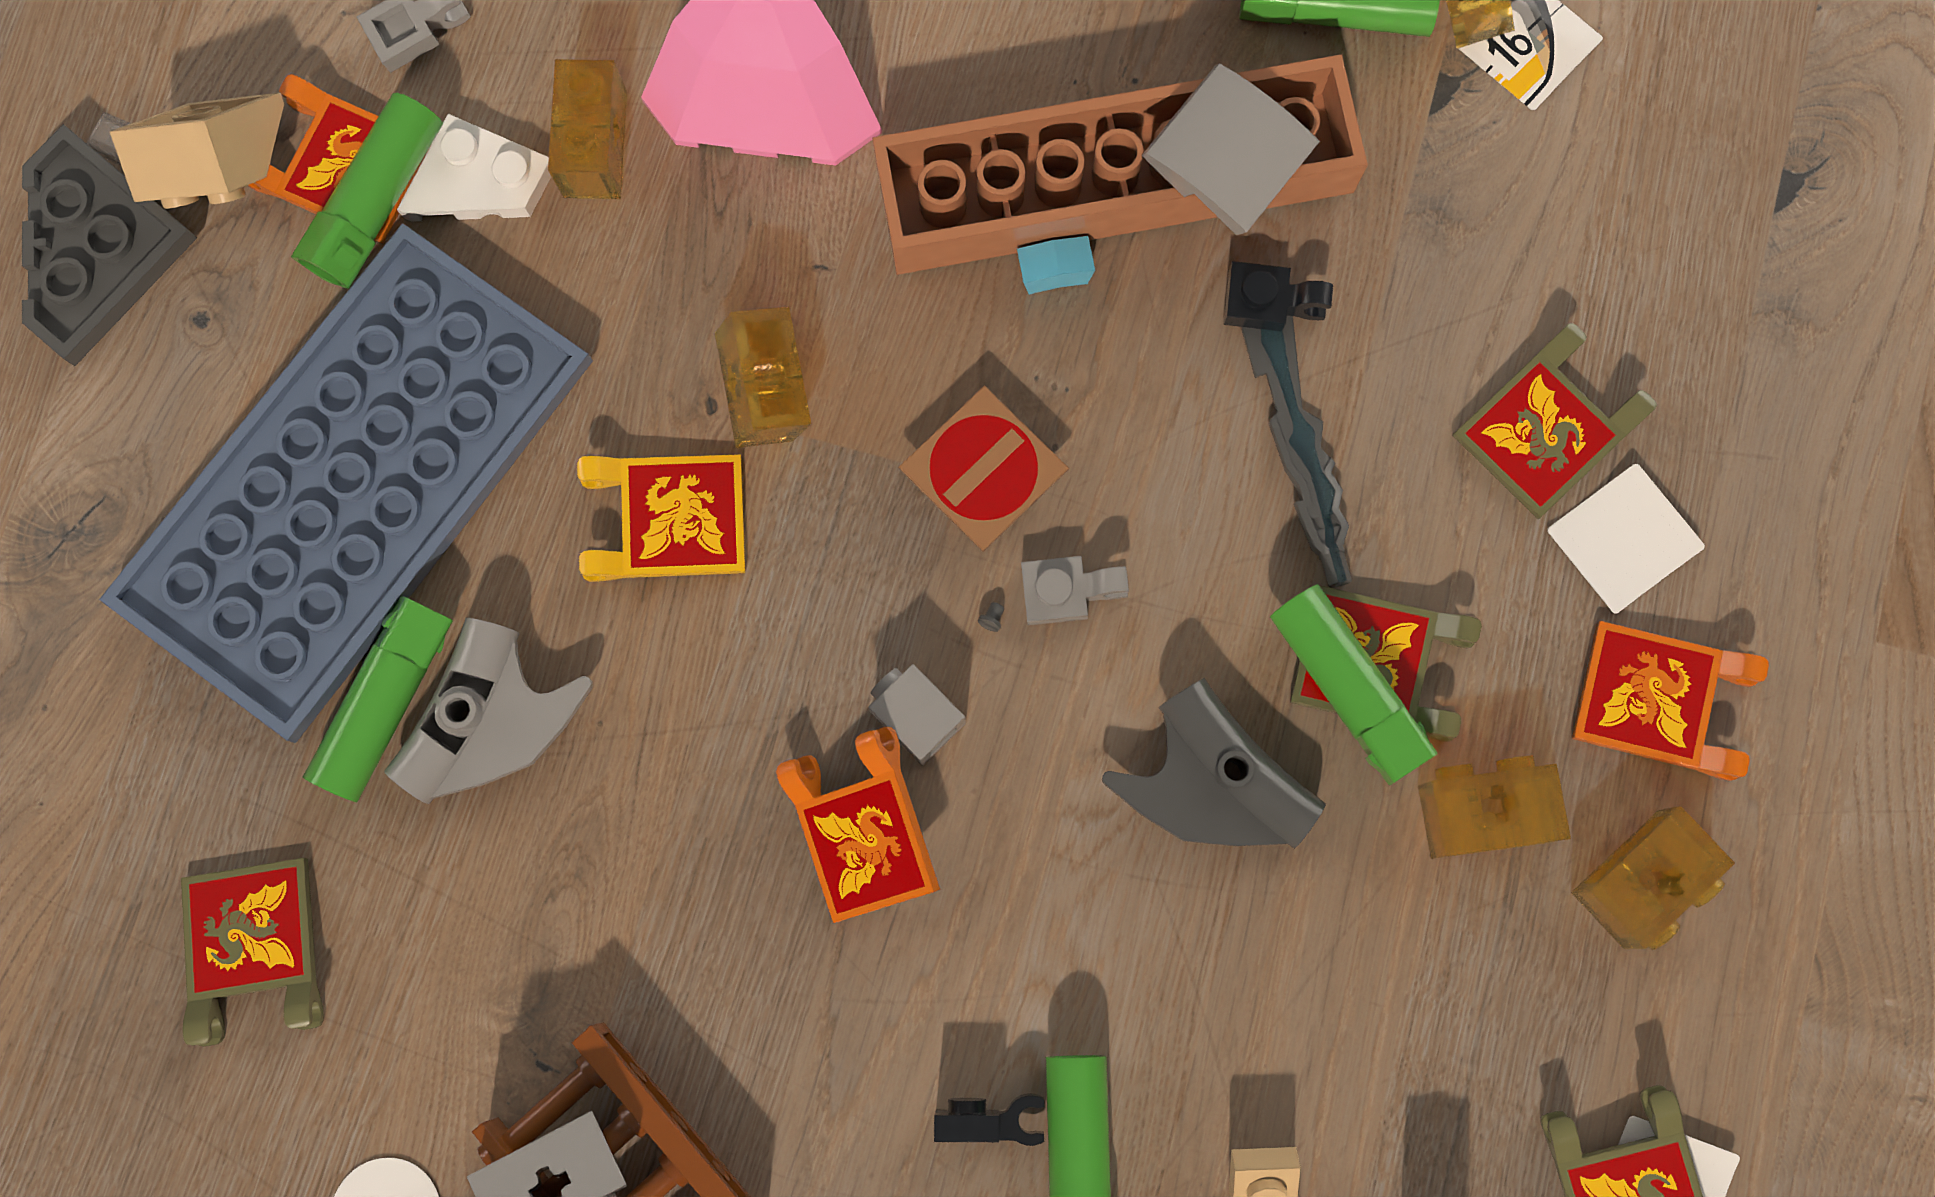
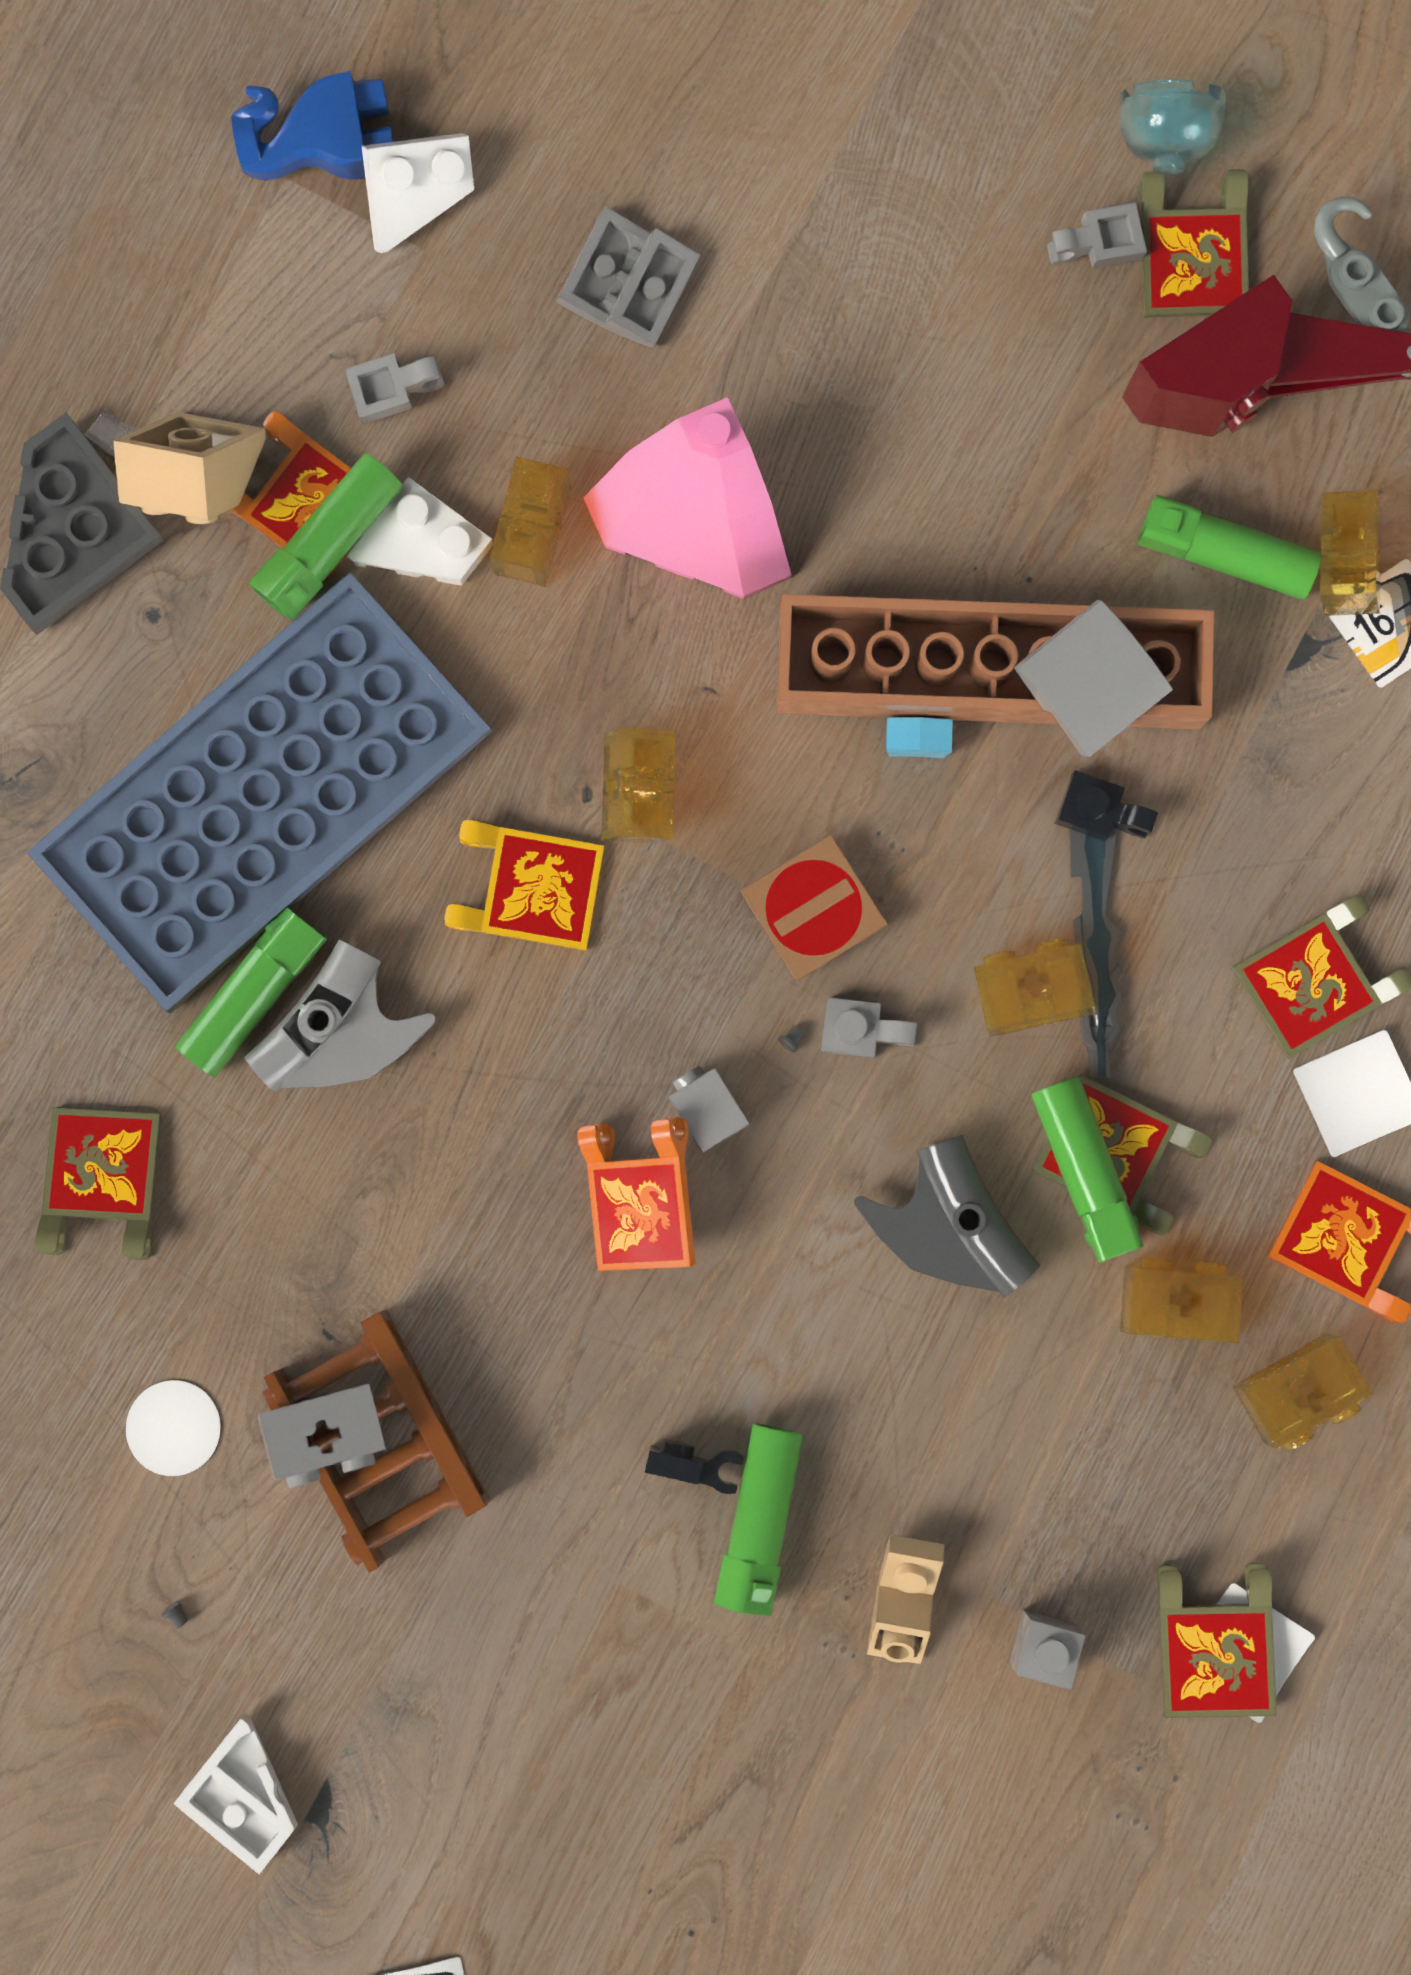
camera: 10 degrees right, 5 degrees up
(1228, 527) = (1062, 999): none -> clear yellow brick

